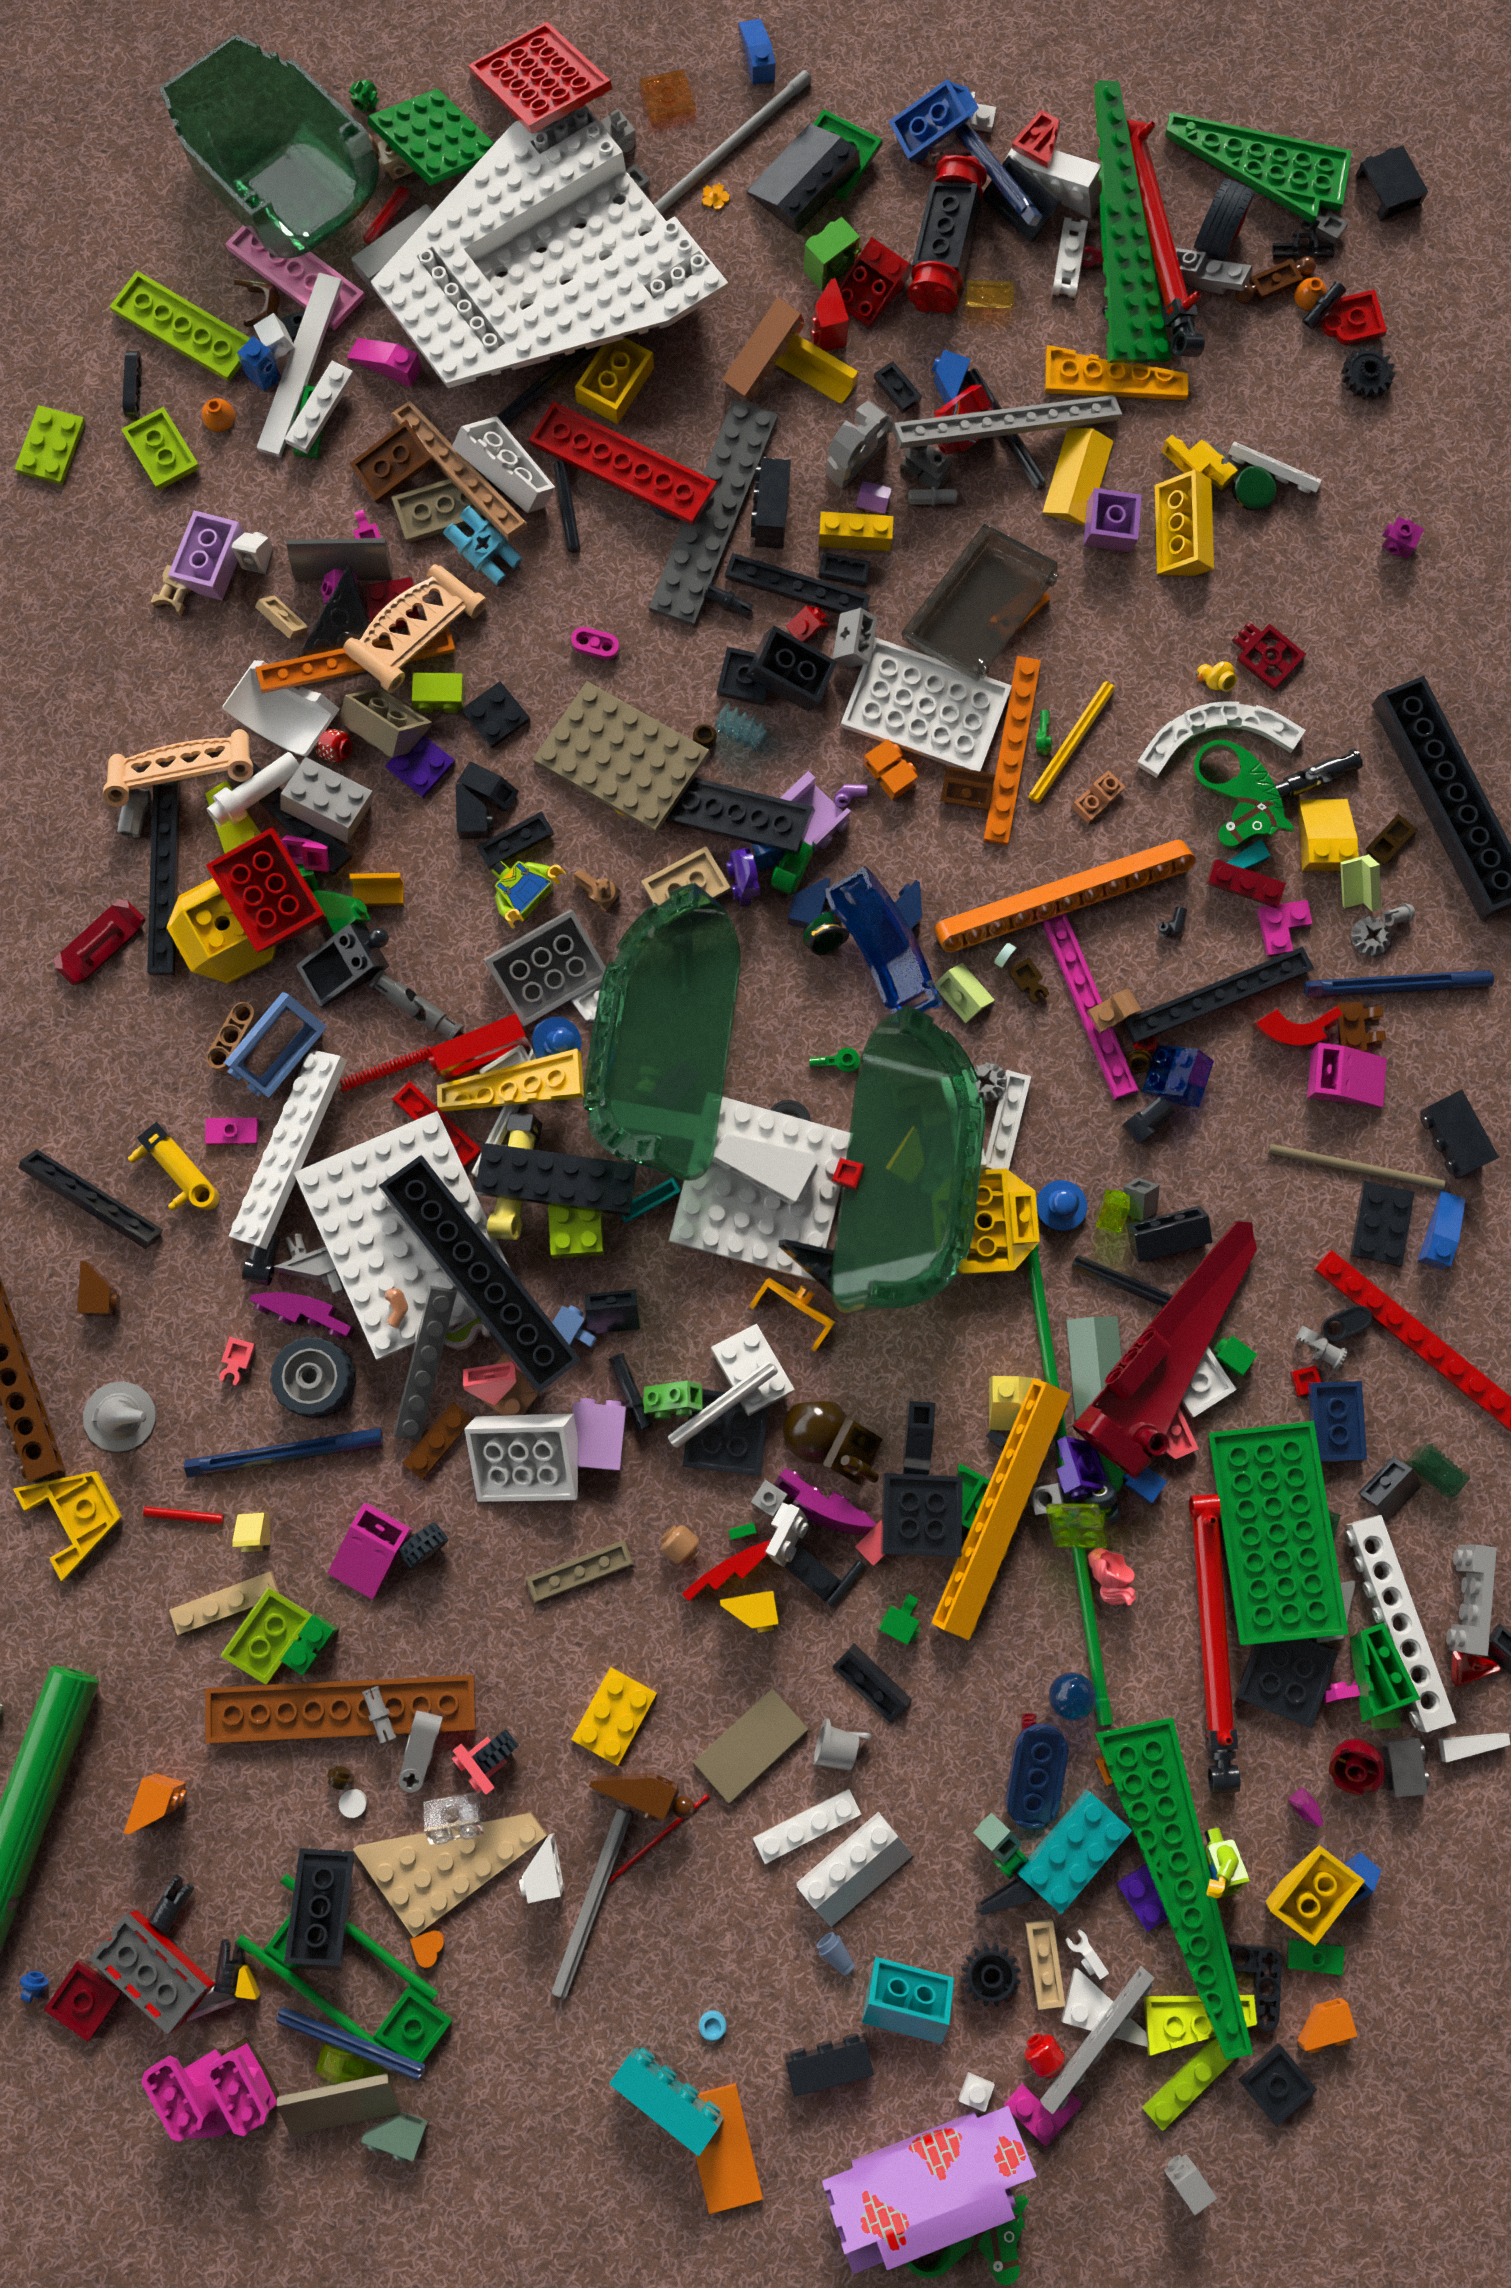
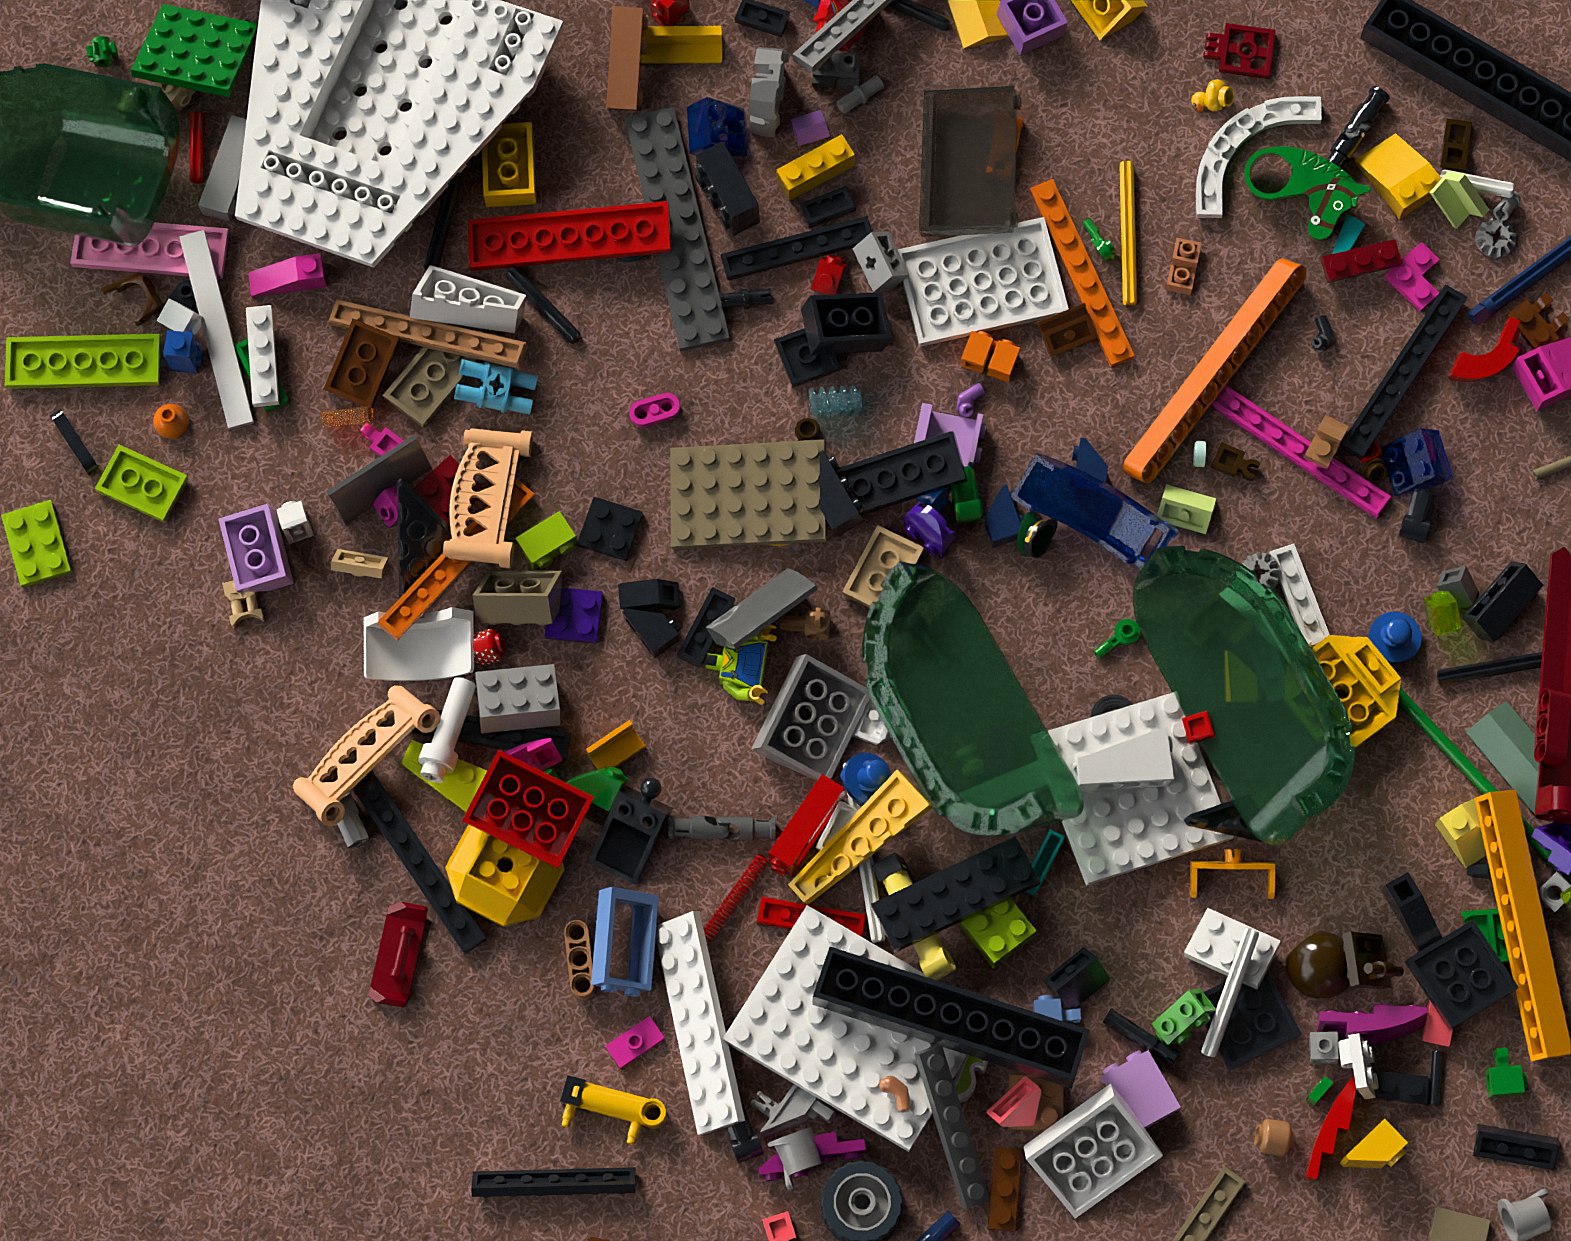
camera: 25 degrees left, 5 degrees down
(285, 1303) = (797, 1153): none -> light grey hat
(352, 496) = (347, 416): none -> clear orange piece
(564, 851) = (761, 609): none -> dark grey slope
(683, 804) = (835, 500): none -> black slope
(803, 447) = (714, 122): none -> clear blue slope
(1395, 889) = (1488, 185): none -> white axle

